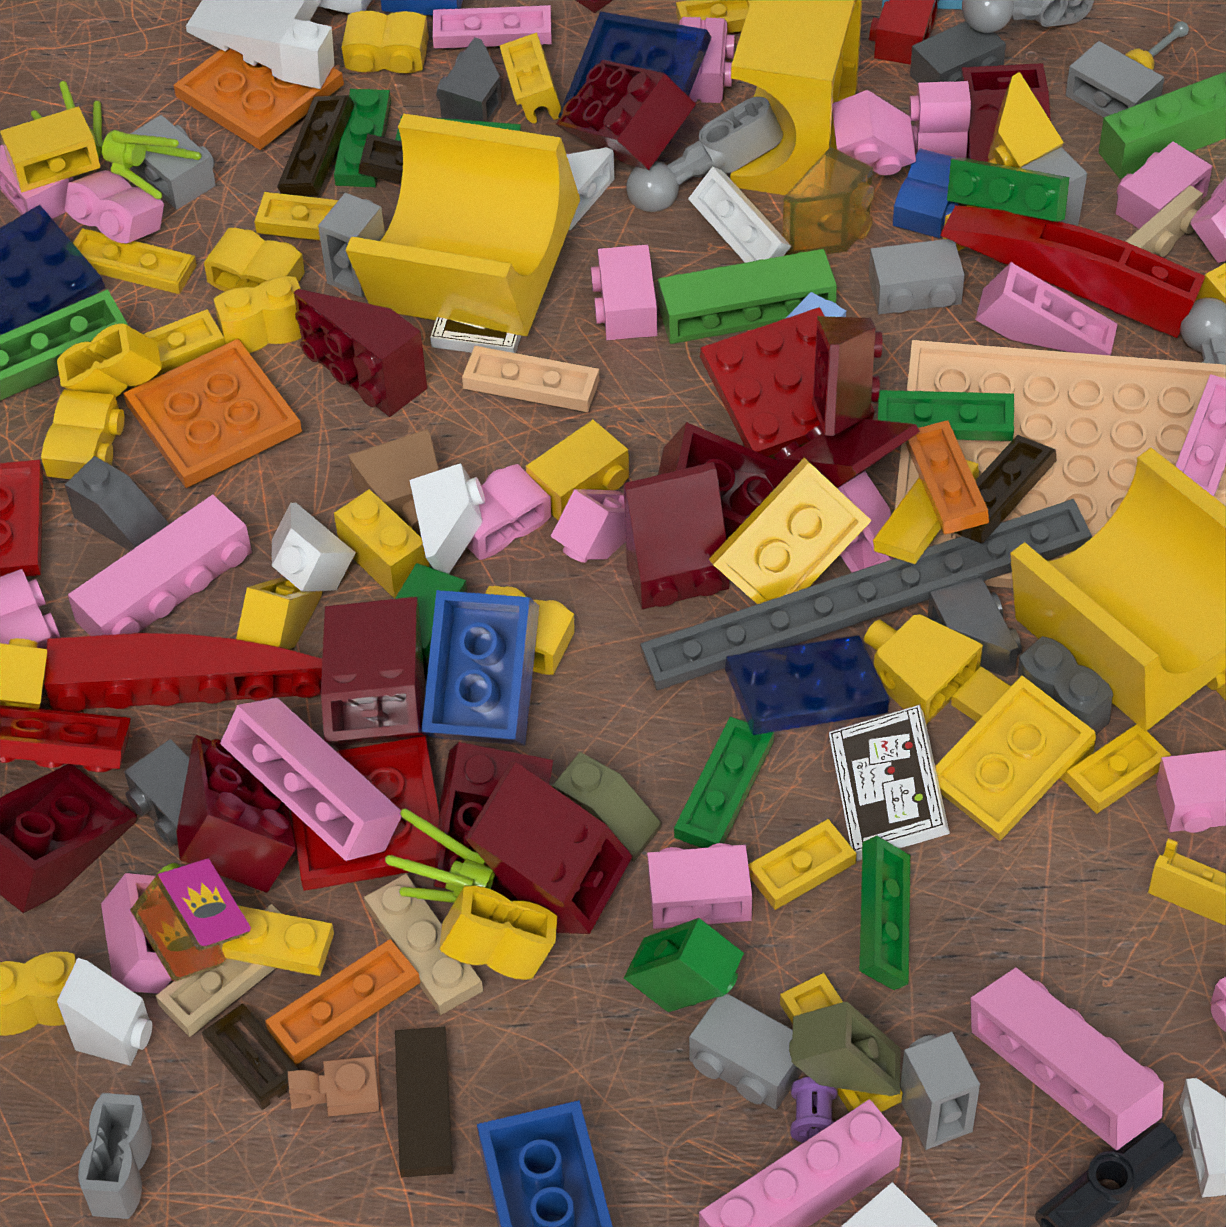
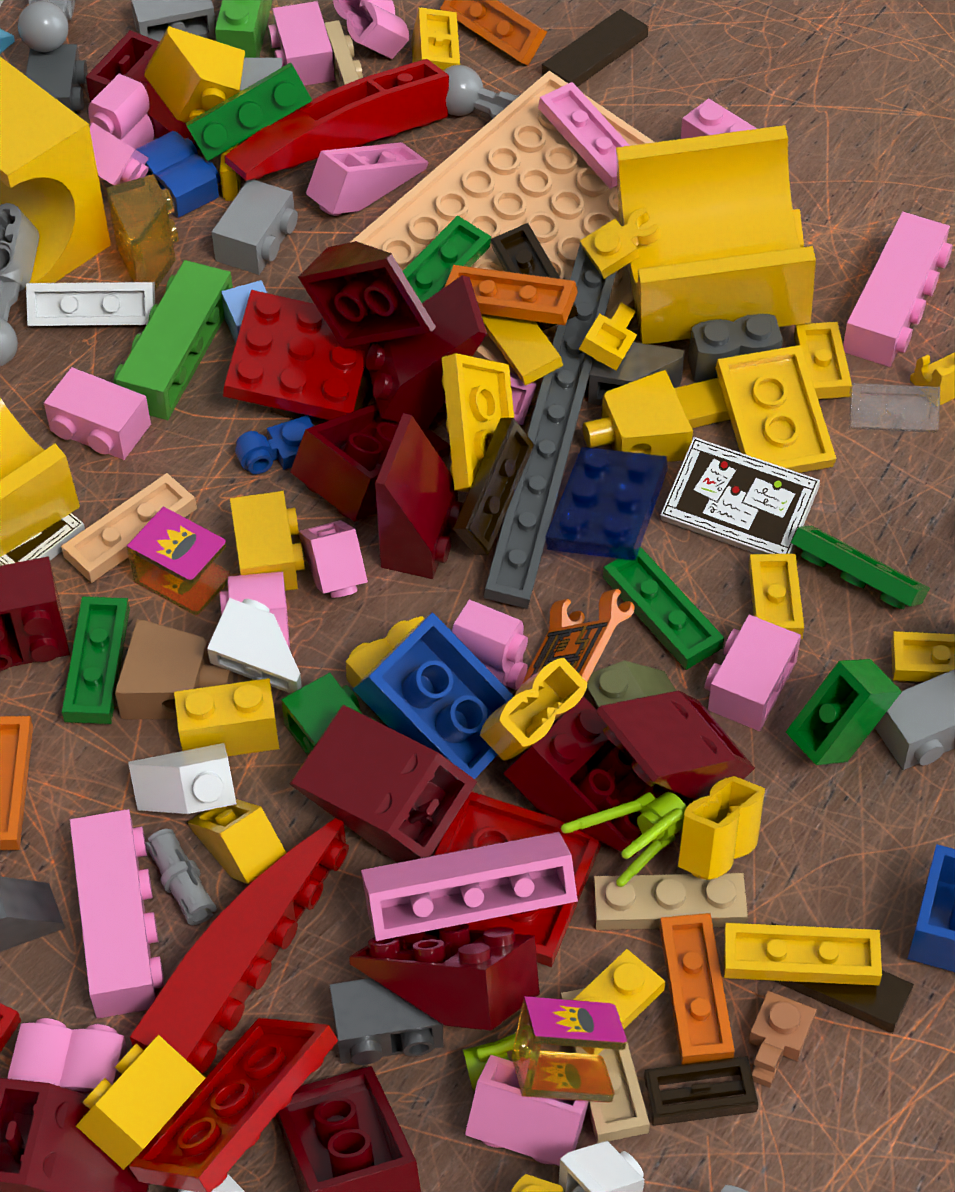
camera: 60 degrees left, 0 degrees up
(208, 618) = (180, 876): none -> light grey pin
(399, 420) = (96, 660): none -> green plate
(415, 1059) = (802, 954): none -> yellow plate
(512, 723) = (533, 709): none -> yellow brick
(513, 422) = (177, 560): none -> piece
(566, 673) = (495, 641): none -> bright pink brick
(615, 734) = (579, 641): none -> flag
(677, 410) = (258, 453): none -> blue plate
(739, 585) = (493, 486): none -> dark brown tile
(970, 580) = (609, 339): none -> yellow plate
(1078, 521) = (615, 245): none -> yellow plate
(1102, 852) = (894, 407): none -> clear plate

